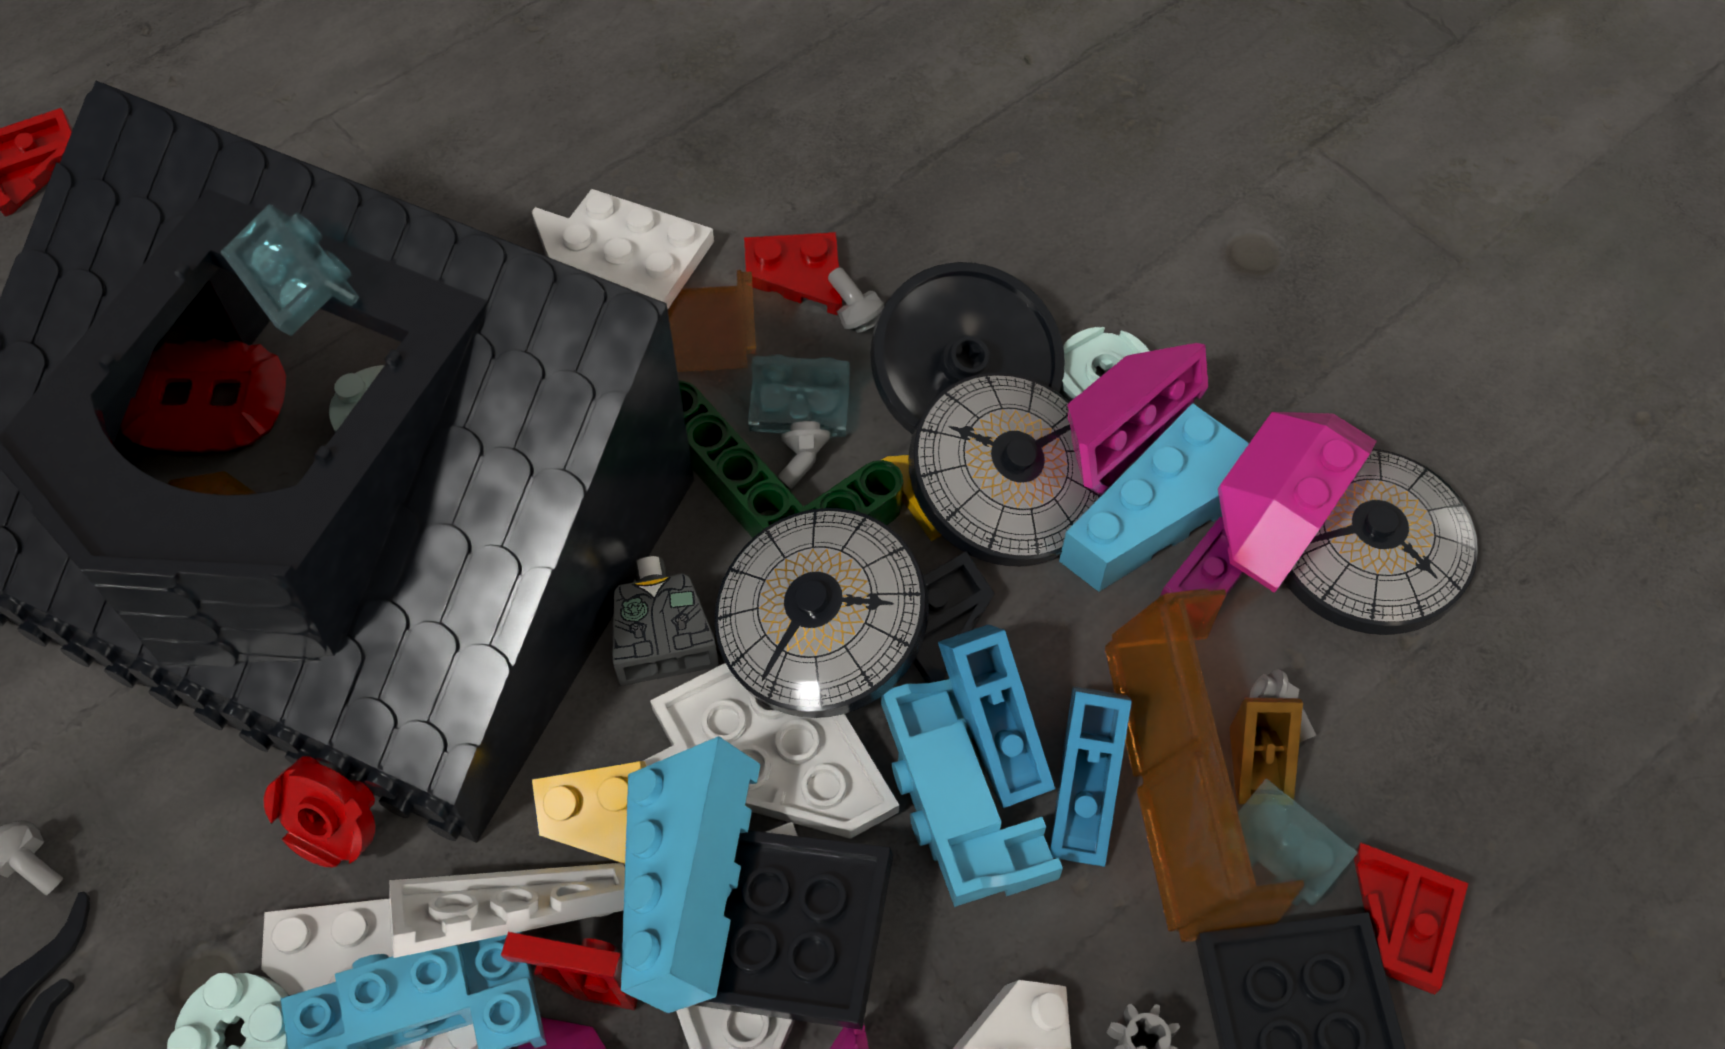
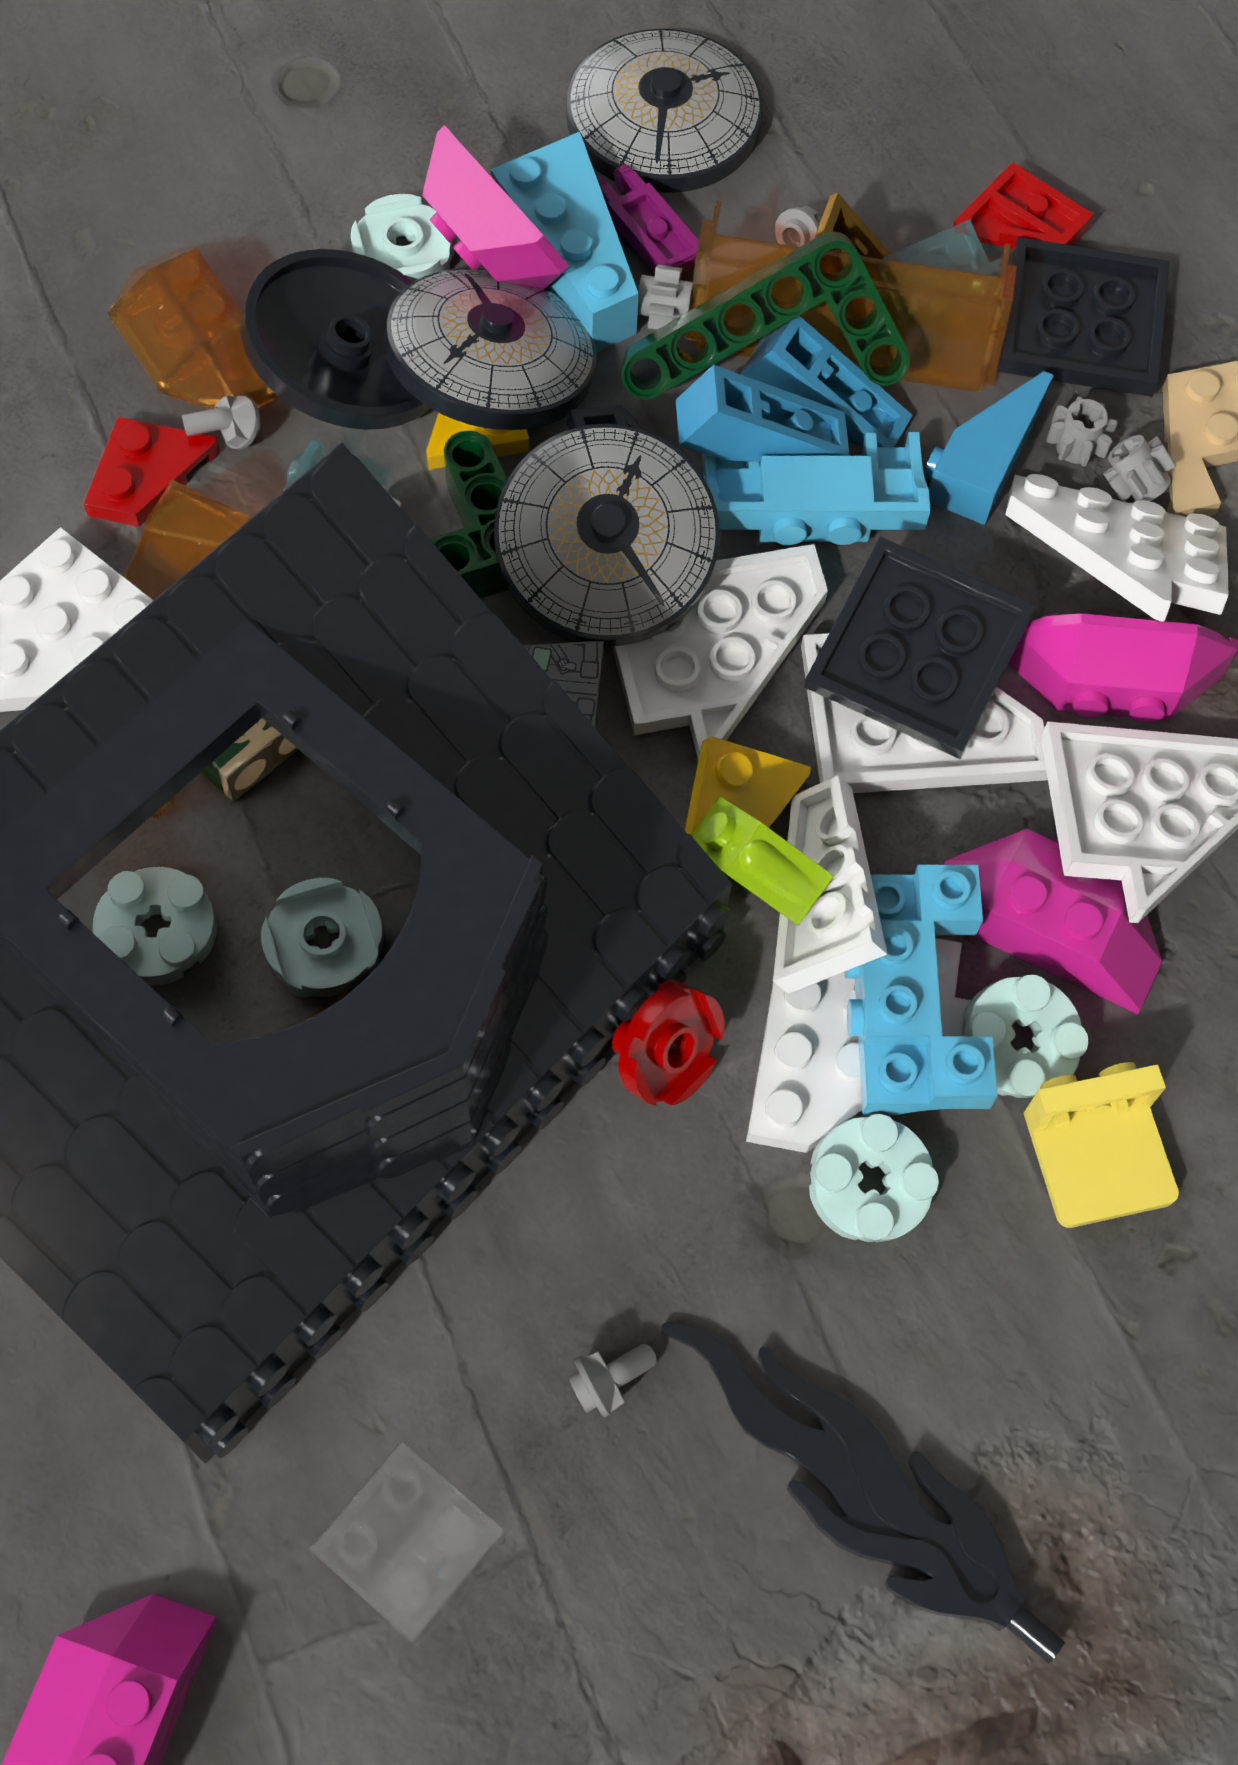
camera: 75 degrees left, 5 degrees up
(287, 268) = (141, 787): clear light blue bracket -> none
(506, 832) = (761, 860): none -> lime torso
(584, 970) = (915, 822): red wing -> none
(681, 871) = (830, 706): medium azure wedge -> none
(941, 231) = (186, 331): none -> clear orange wedge
(1072, 946) = (983, 452): none -> dark azure slope
(1129, 592) = (663, 296): none -> light grey gear
(1173, 705) = (770, 314): none -> dark green beam
(1287, 489) = (619, 128): dark pink wedge -> none

